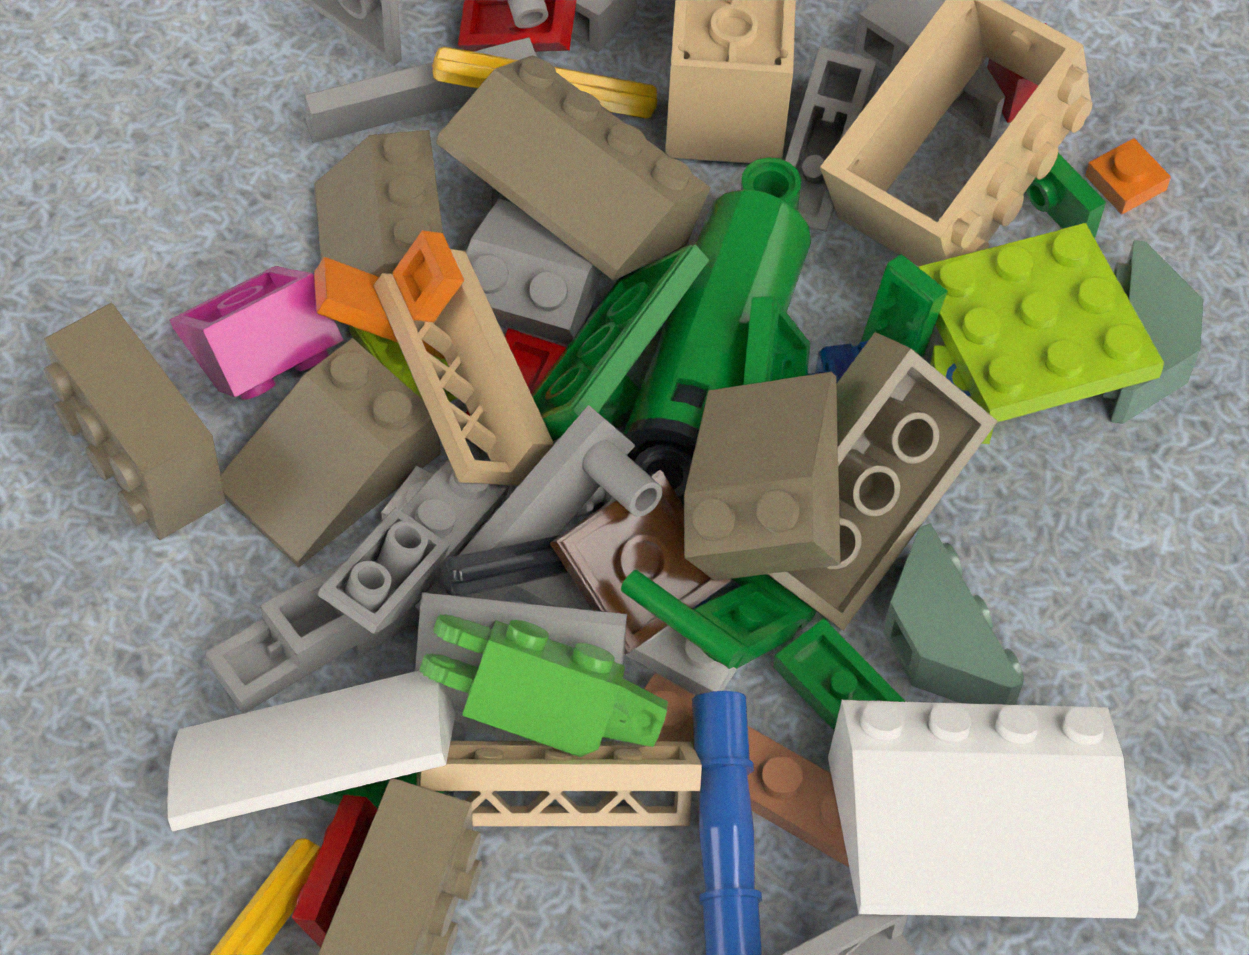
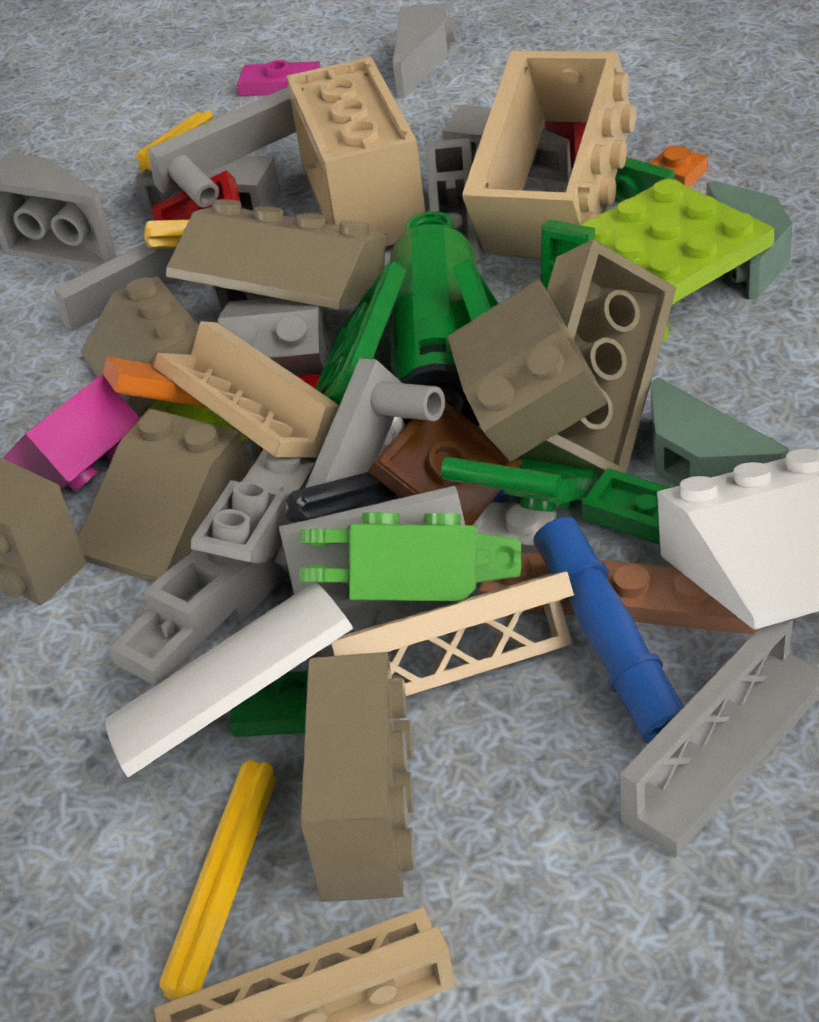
camera: 10 degrees left, 15 degrees down
(333, 866) = (284, 770): red plate -> none
(428, 276) = (194, 339): orange plate -> none

